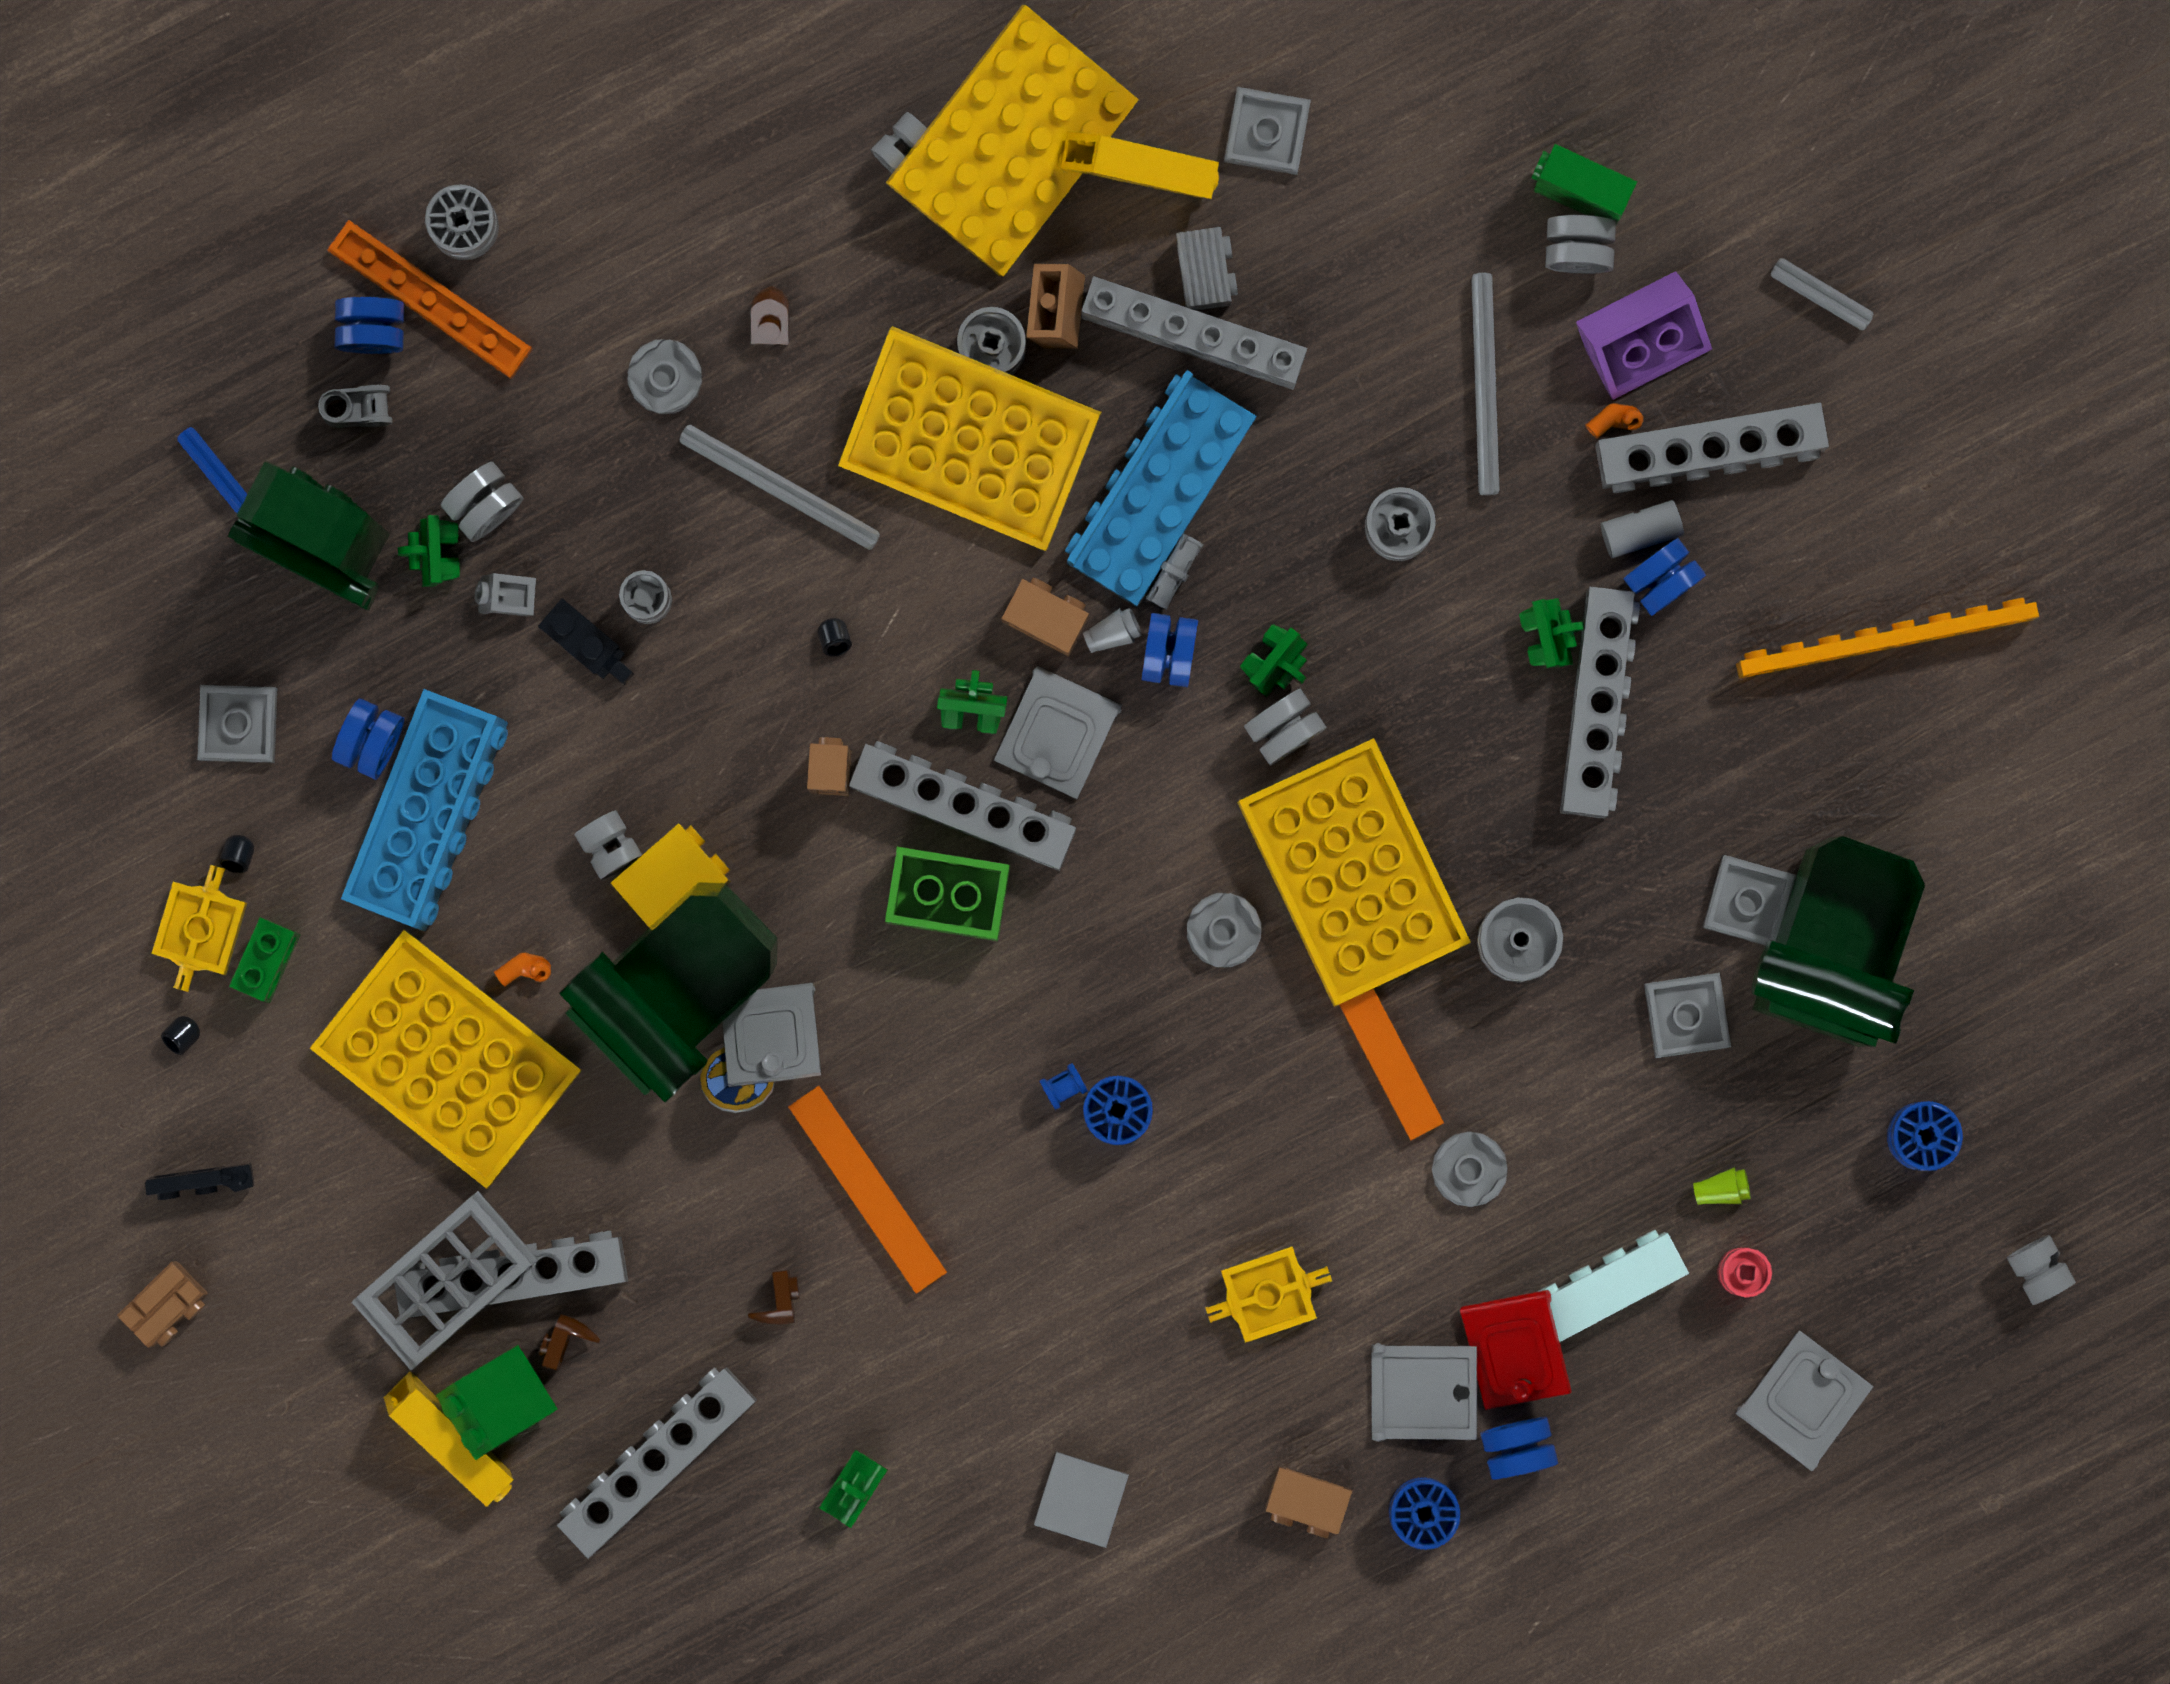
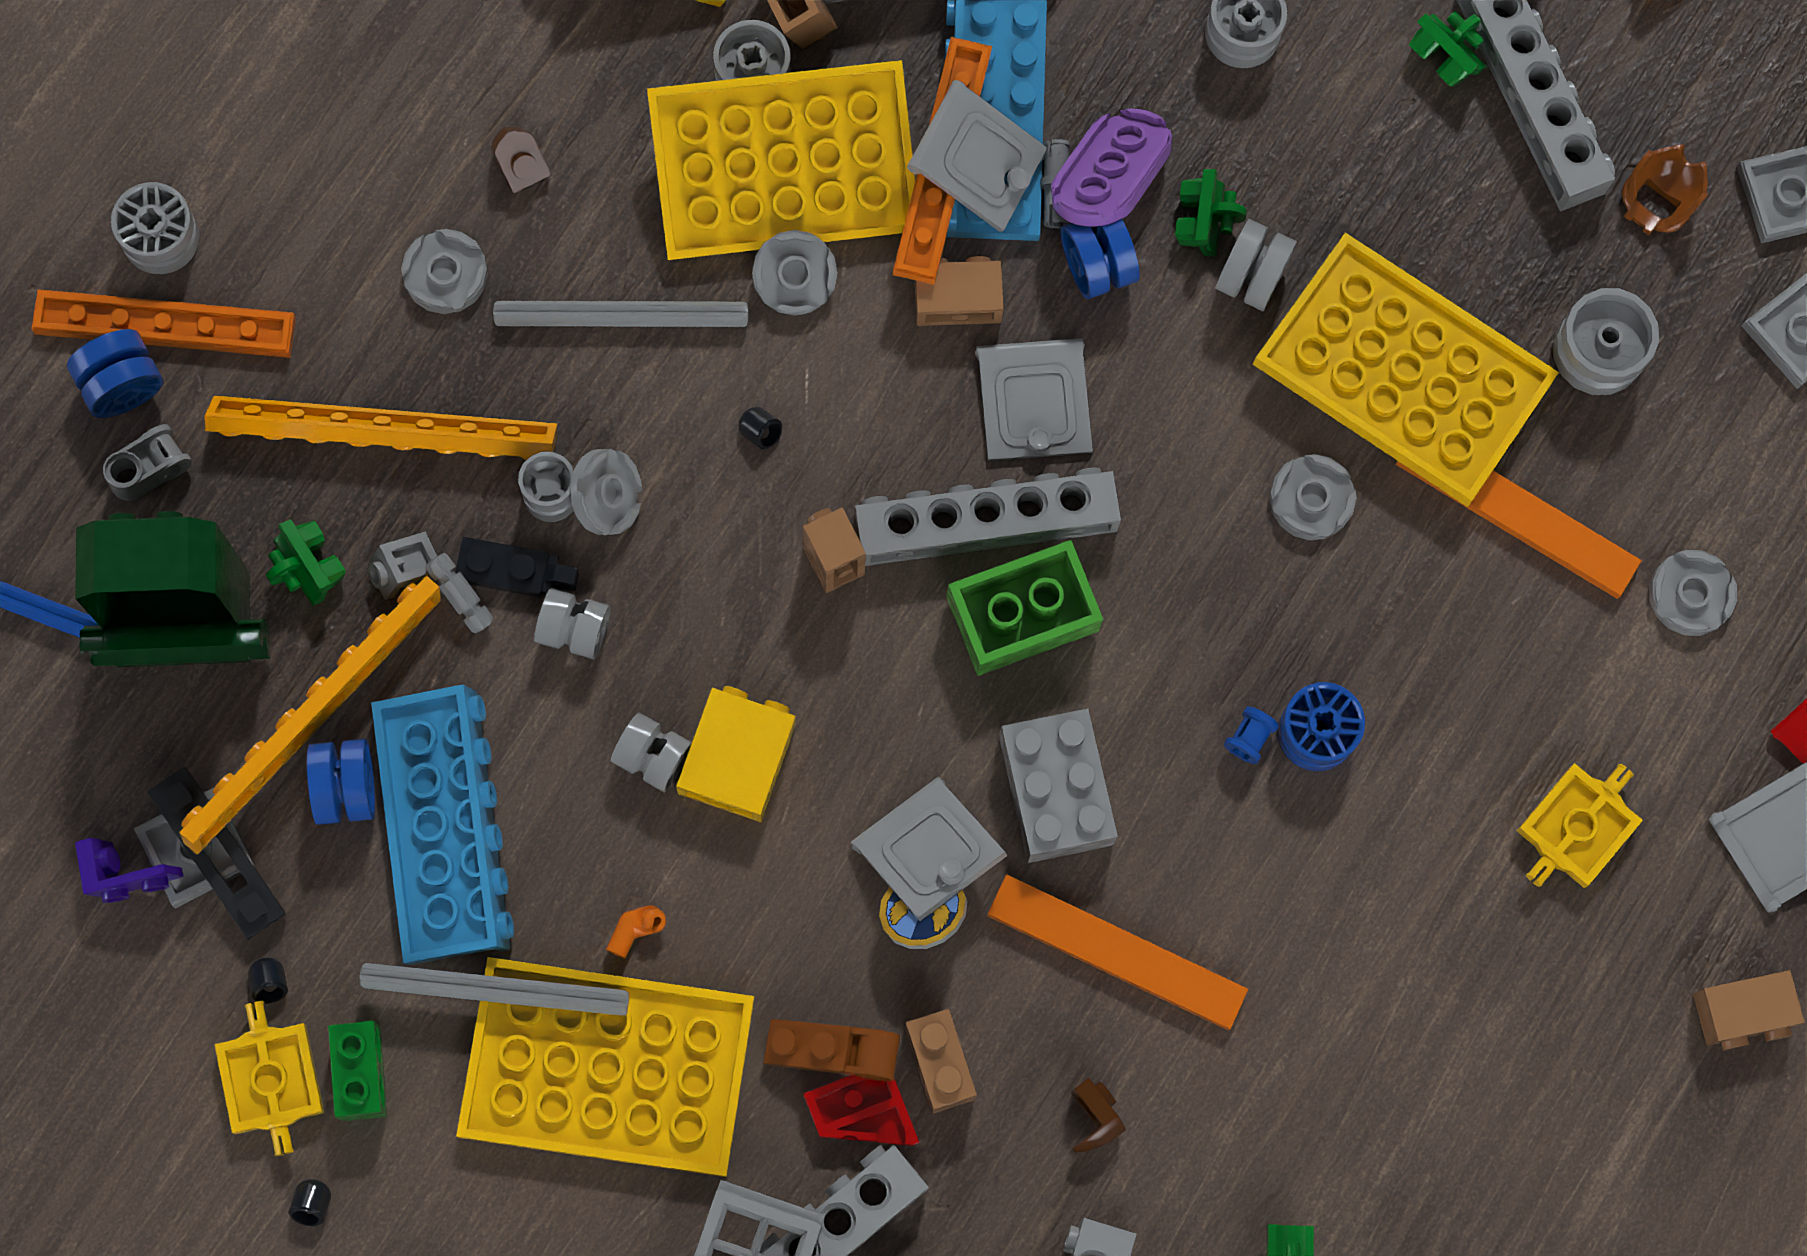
camera: 40 degrees left, 10 degrees down
(156, 708) = (100, 868): none -> dark purple bracket
(247, 684) = (253, 905): none -> black container
(388, 668) = (299, 725): none -> light orange plate
(394, 957) = (494, 989): none -> light grey axle
(481, 501) = (327, 482): light grey wheel -> none
(534, 641) = (459, 593): none -> light grey axle
(547, 477) = (379, 427): none -> light orange plate
(604, 713) = (572, 623): none -> light grey wheel
(613, 1196) = (861, 1111): none -> red wing
(614, 1141) = (832, 1049): none -> dark orange plate
(673, 987) = (805, 849): dark green piece -> none
(685, 626) = (605, 491): none -> light grey tile
(688, 1195) = (940, 1061): none -> medium nougat brick
(894, 1041) = (1057, 785): none -> light grey brick
(929, 530) = (794, 272): none -> light grey tile
(987, 706) = (919, 424): green hips -> none
(1081, 1499) = (1522, 1143): light grey tile -> none
(1090, 508) = (929, 204): none -> orange tile
(1113, 516) = (971, 151): none -> light grey container
(1113, 631) = (1032, 271): light grey cone -> none
(1219, 586) = (1111, 168): none -> medium lavender tile
(1663, 840) = (1671, 177): none -> dark orange helmet

